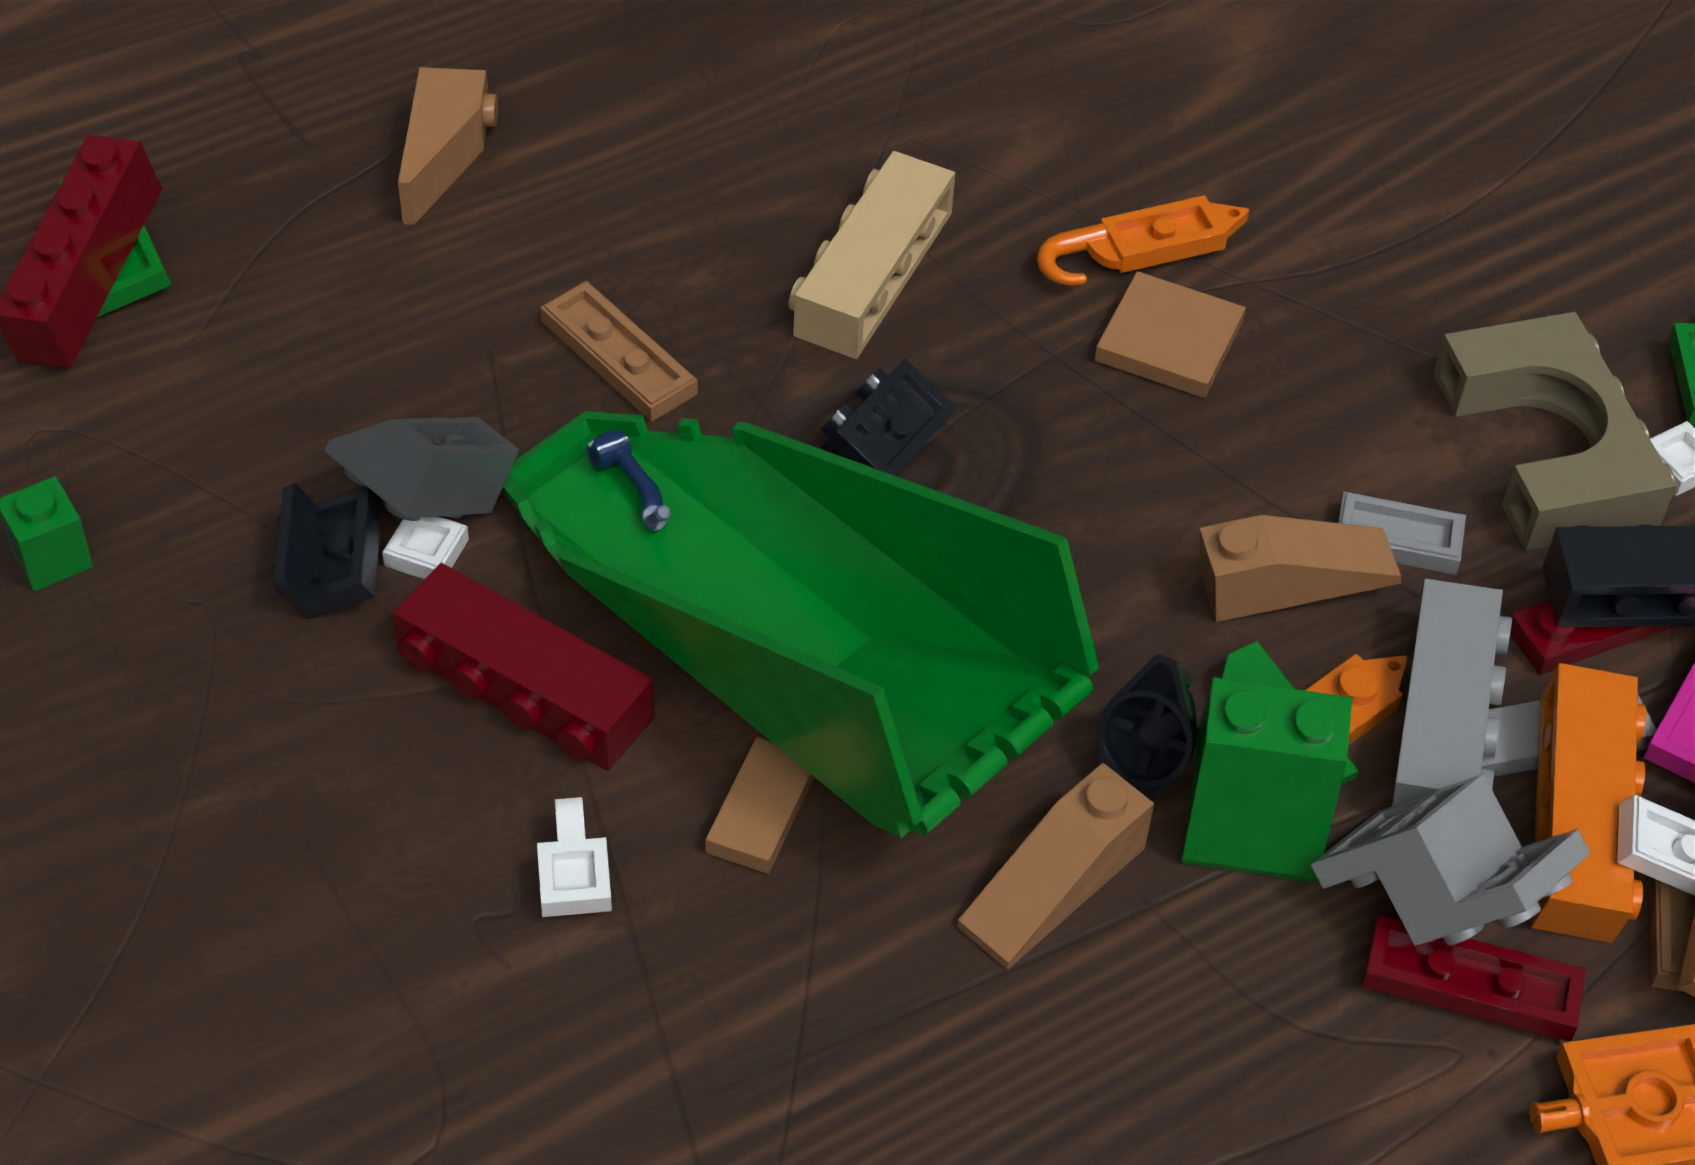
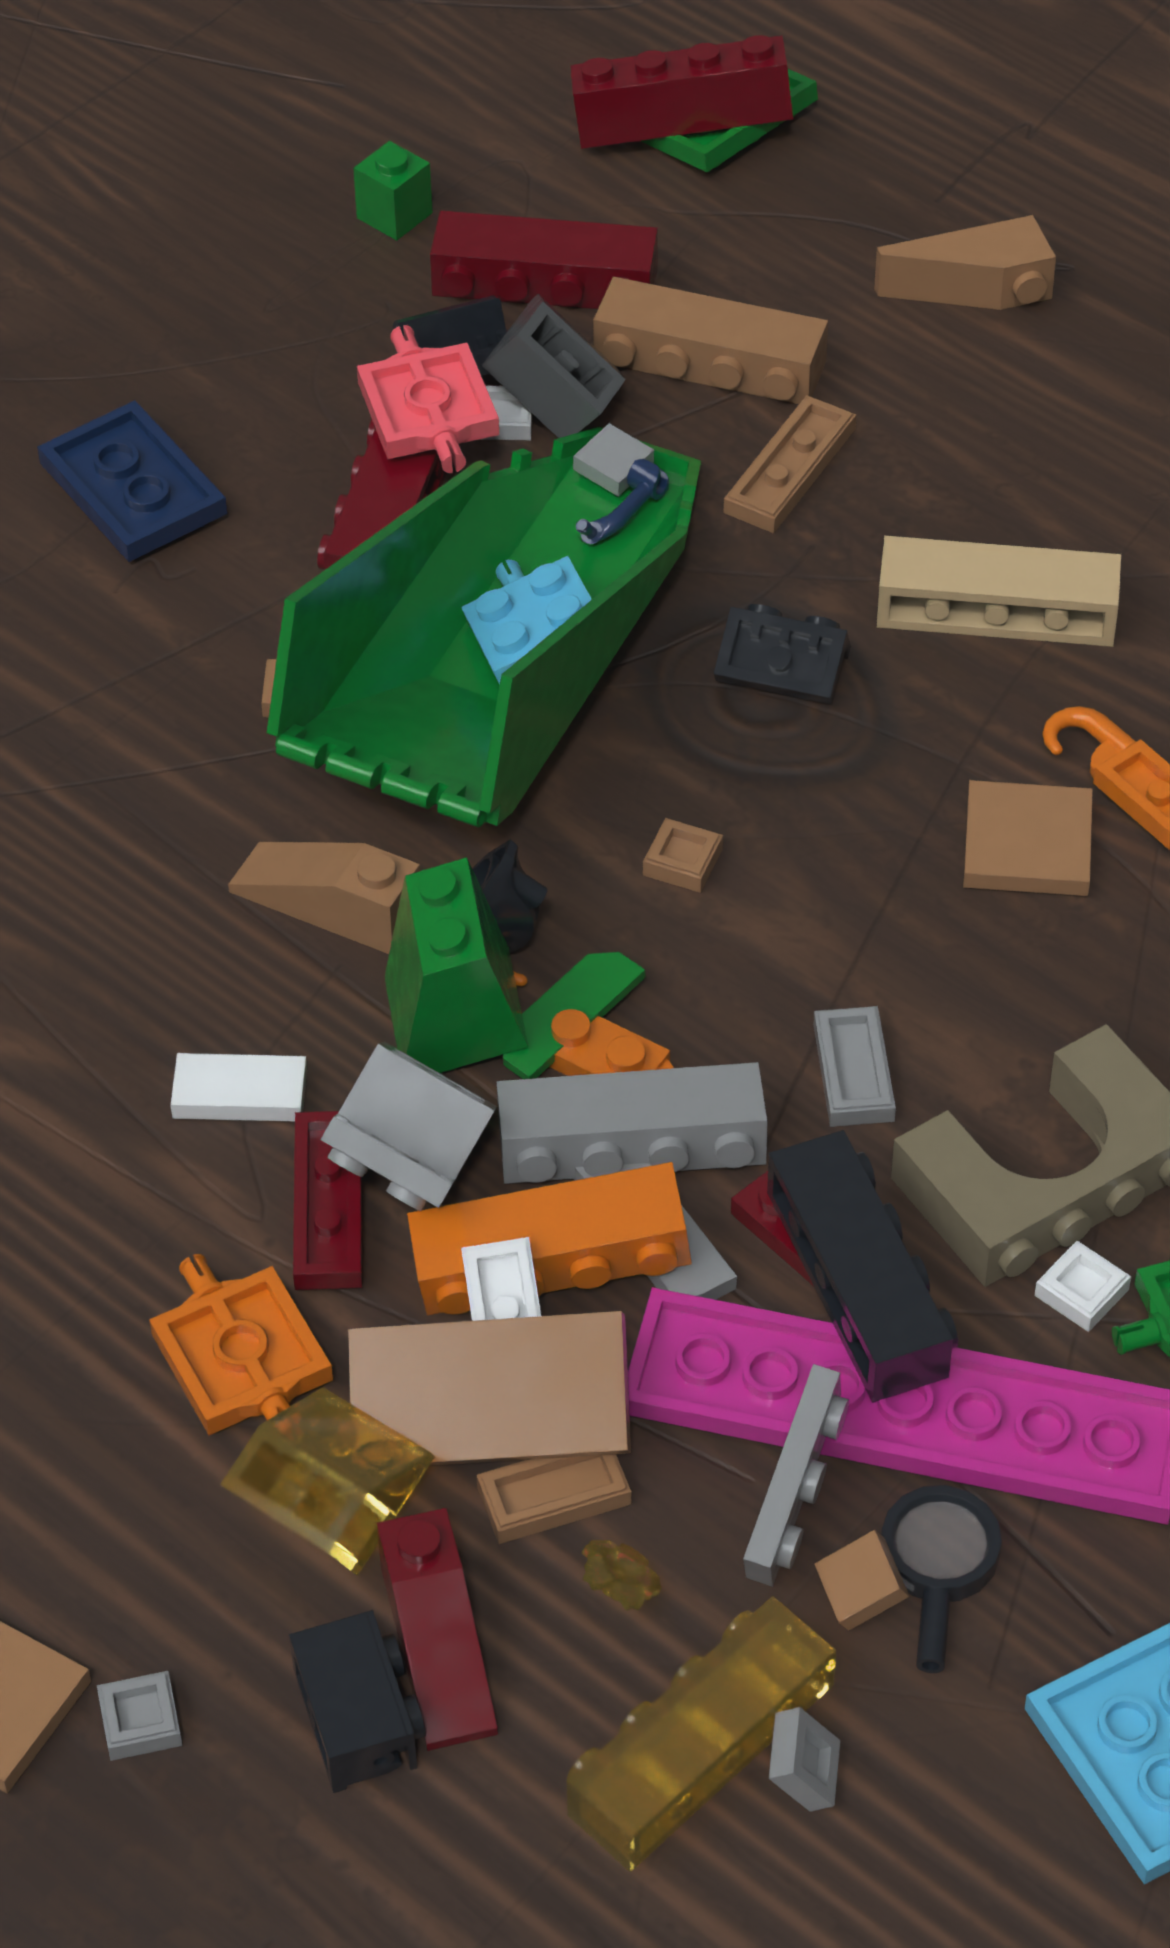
camera: 75 degrees right, 0 degrees up
(232, 445) = (533, 256): none -> dark red brick
(362, 897) = (132, 480): none -> dark blue plate
(433, 345) = (711, 340): none -> medium nougat brick
(443, 572) = (427, 400): none -> coral plate
(565, 469) = (609, 458): none -> light grey tile
(573, 868) = (209, 590): white plate -> none
(787, 582) = (524, 610): none -> medium azure plate
(1106, 578) = (683, 855): none -> medium nougat tile
(1289, 562) = (746, 970): medium nougat slope -> none
(1295, 1023) = (238, 1087): none -> white tile

